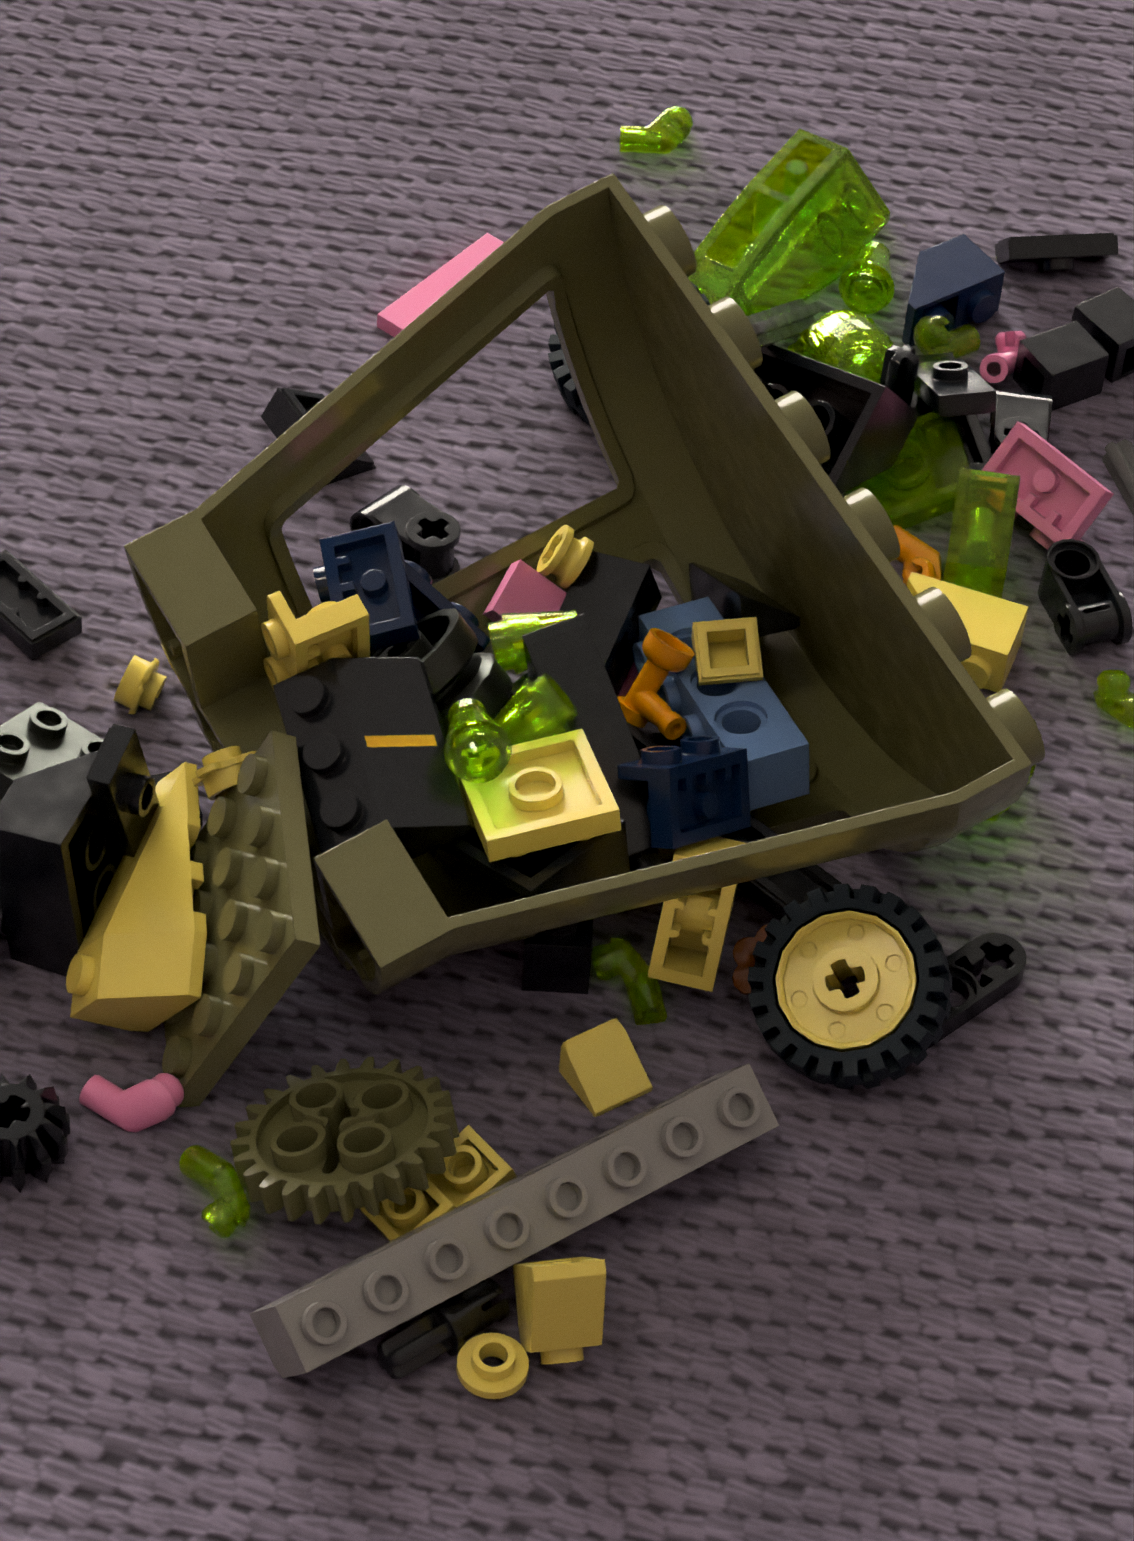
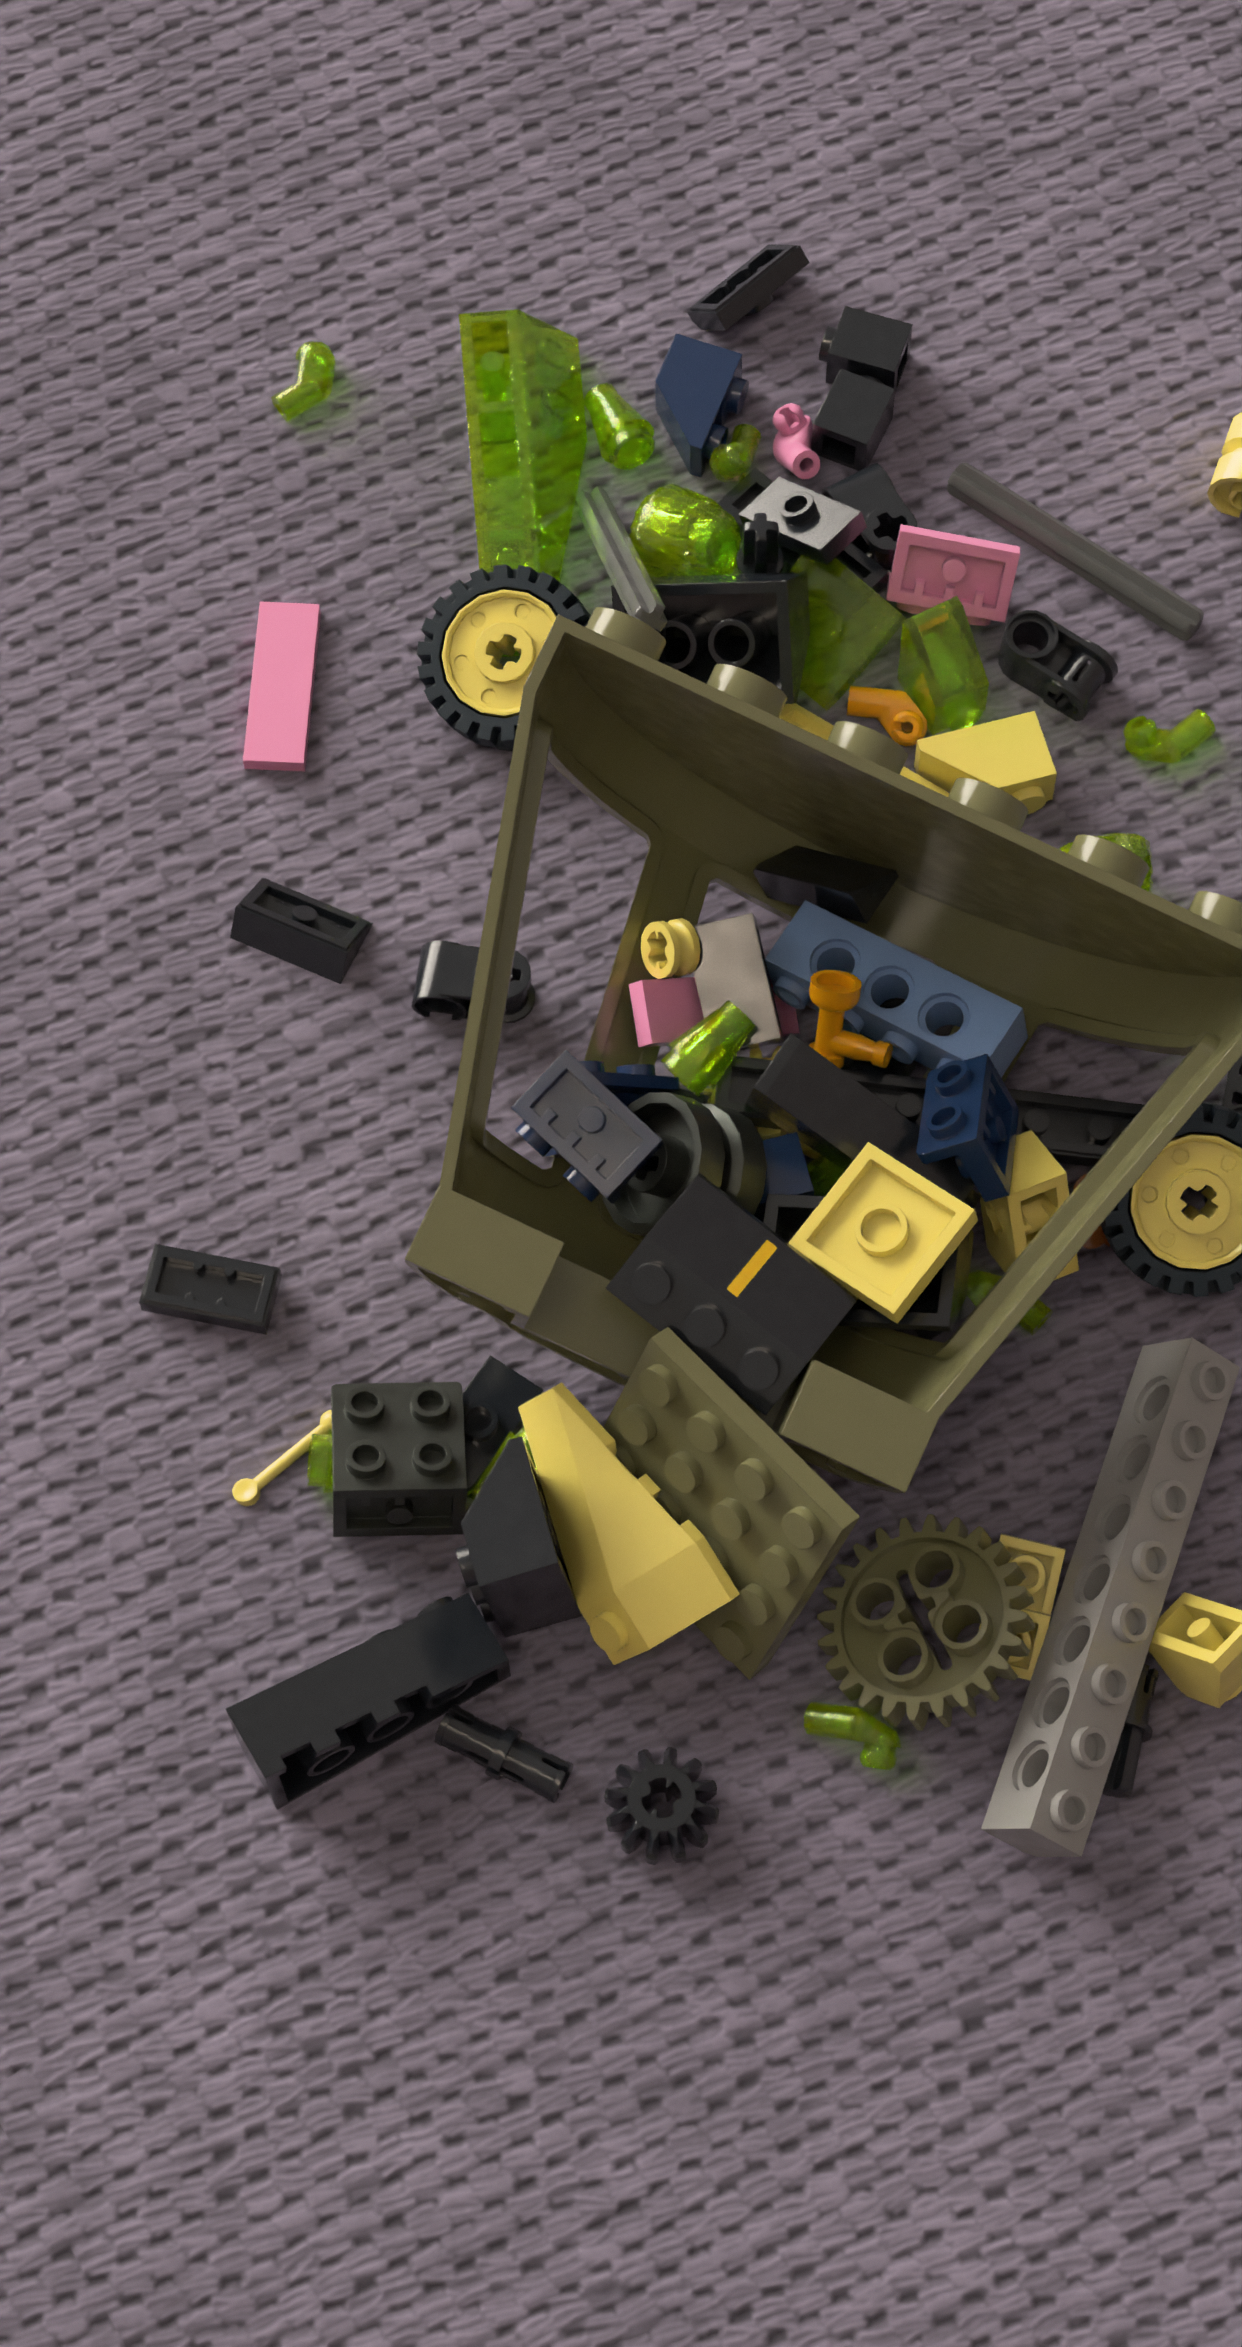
camera: 30 degrees left, 20 degrees up
(122, 789) = (549, 1462): black plate -> none
(137, 1106) = (731, 1705): bright pink arm -> none
(140, 684) = (381, 1297): light yellow plate -> none
(220, 771) = (605, 1380): light yellow plate -> none
(321, 634) = (604, 1247): light yellow bracket -> none
(475, 743) = (808, 1224): clear neon green cone -> none
(487, 1380) = (1175, 1748): light yellow plate -> none
(536, 711) = (816, 1162): clear neon green cone -> none
(603, 1067) = (1051, 1400): light yellow slope -> none
(727, 651) = (882, 958): light yellow slope -> none

